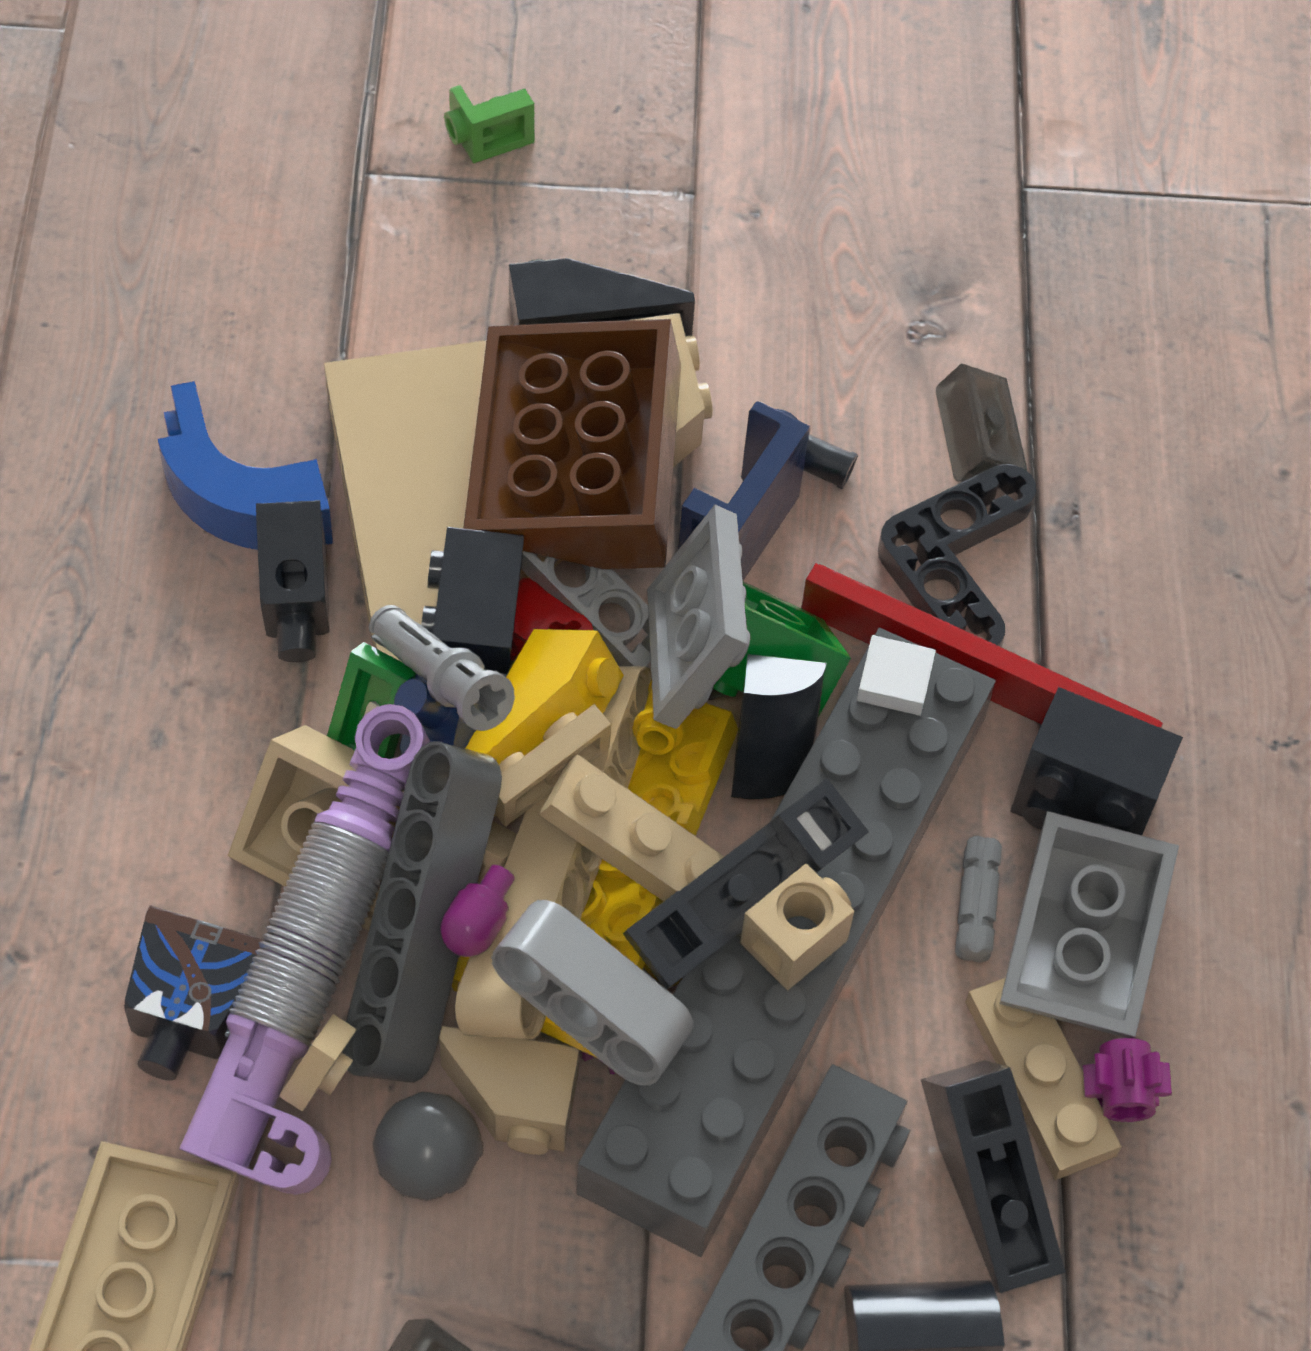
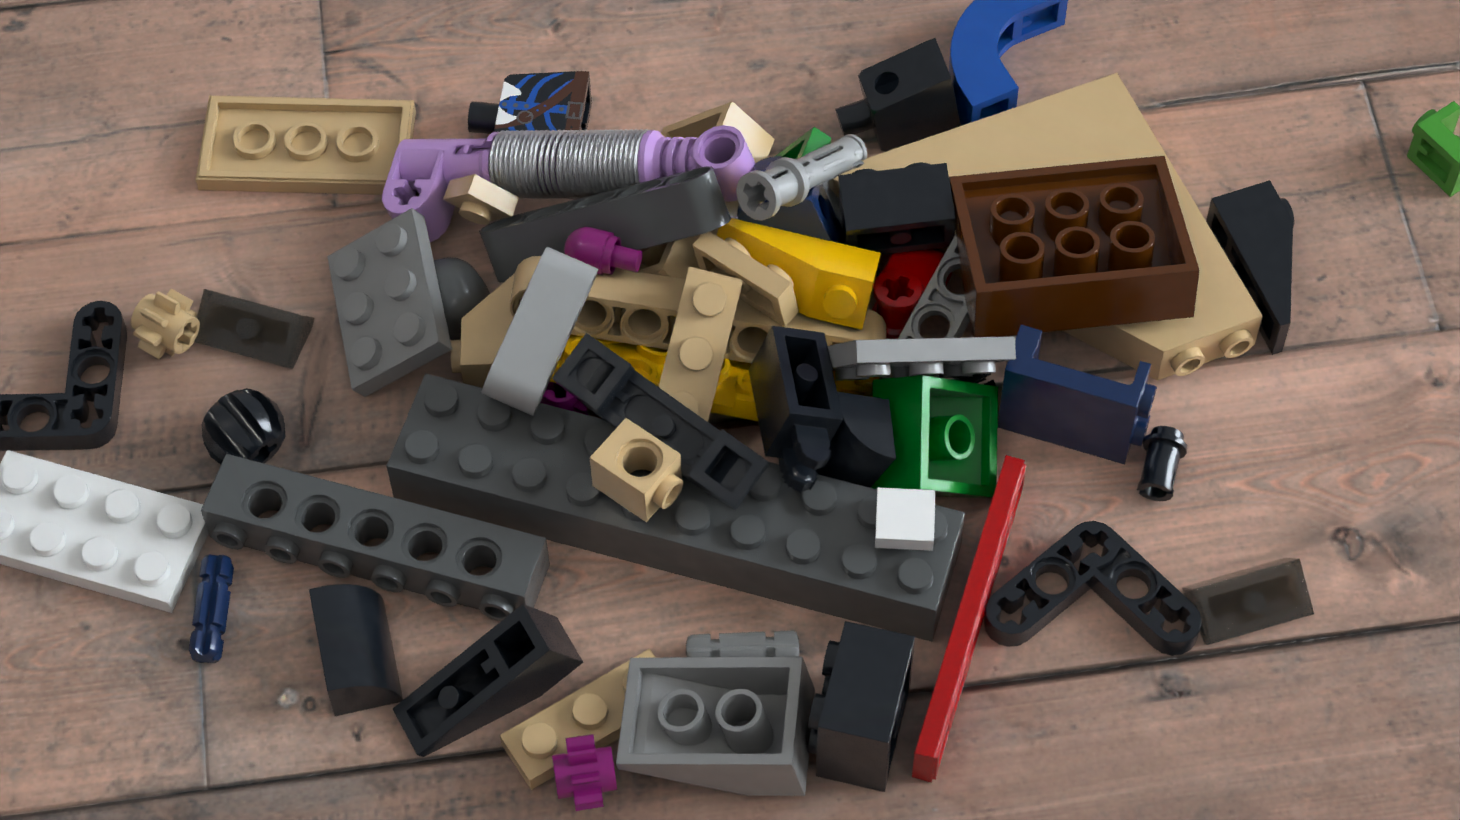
camera: 85 degrees right, 0 degrees up
(434, 1208) = (389, 303): none -> light grey plate
(740, 745) = (796, 402): none -> black hinge

